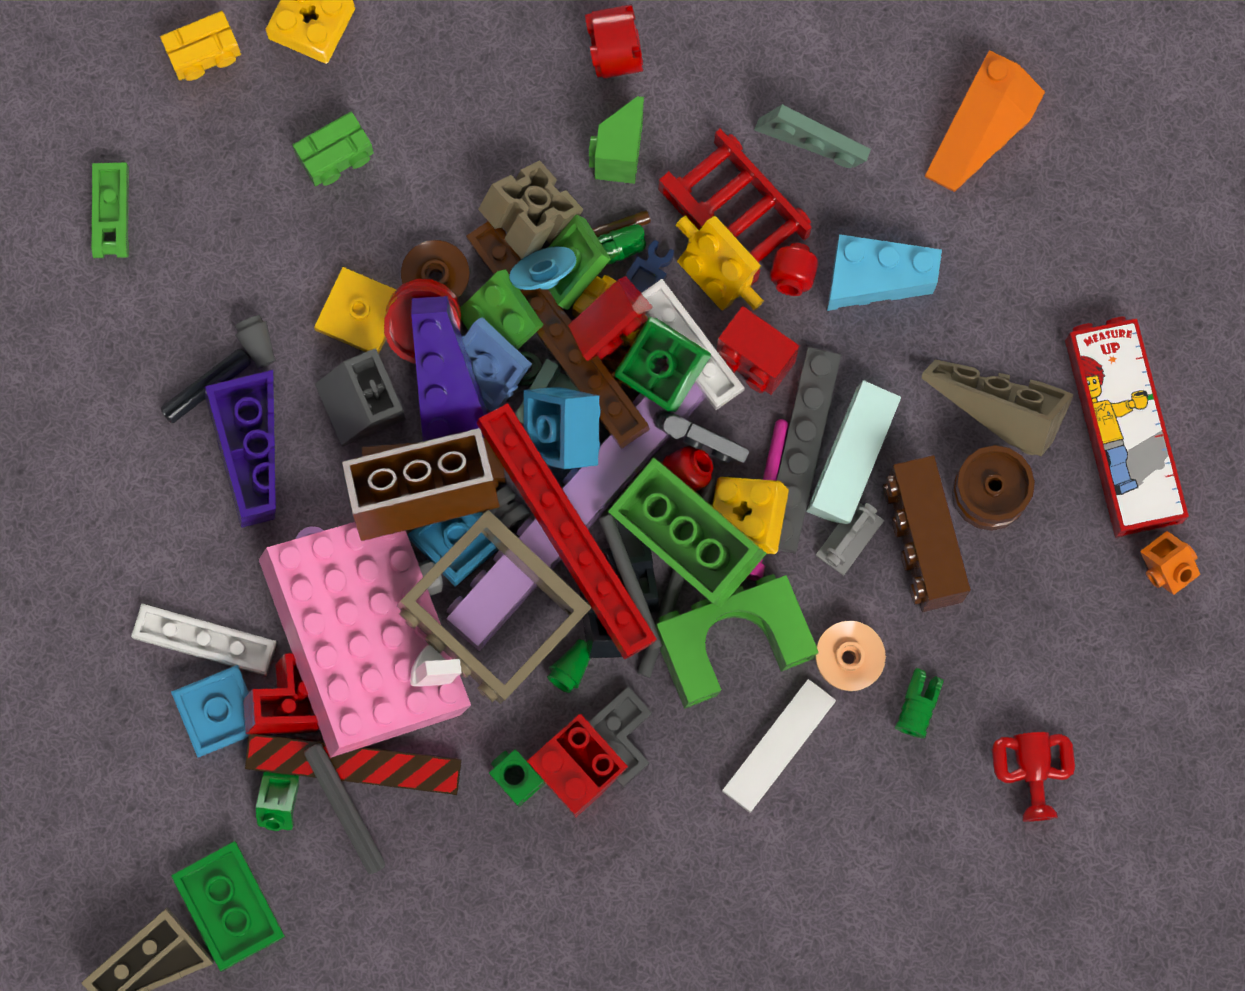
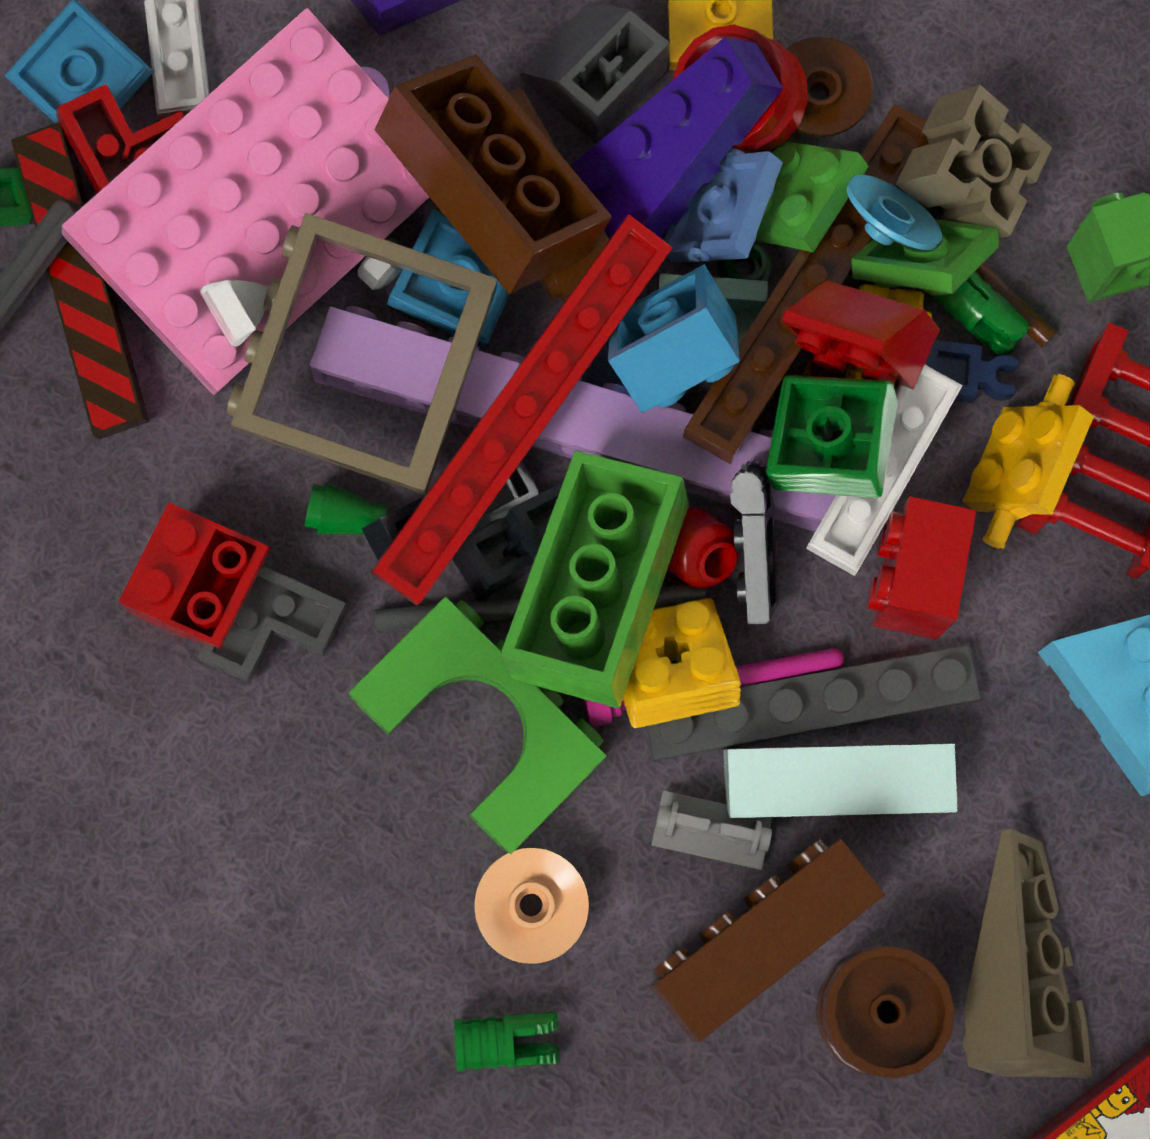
camera: 65 degrees right, 0 degrees up
(509, 512) = (526, 322): dark grey wheel -> none
(527, 788) = (139, 480): green brick -> none
(627, 574) = (494, 533): dark grey bar -> none
(779, 746) = (355, 859): white tile -> none
(794, 269) = (1074, 574): red head -> none

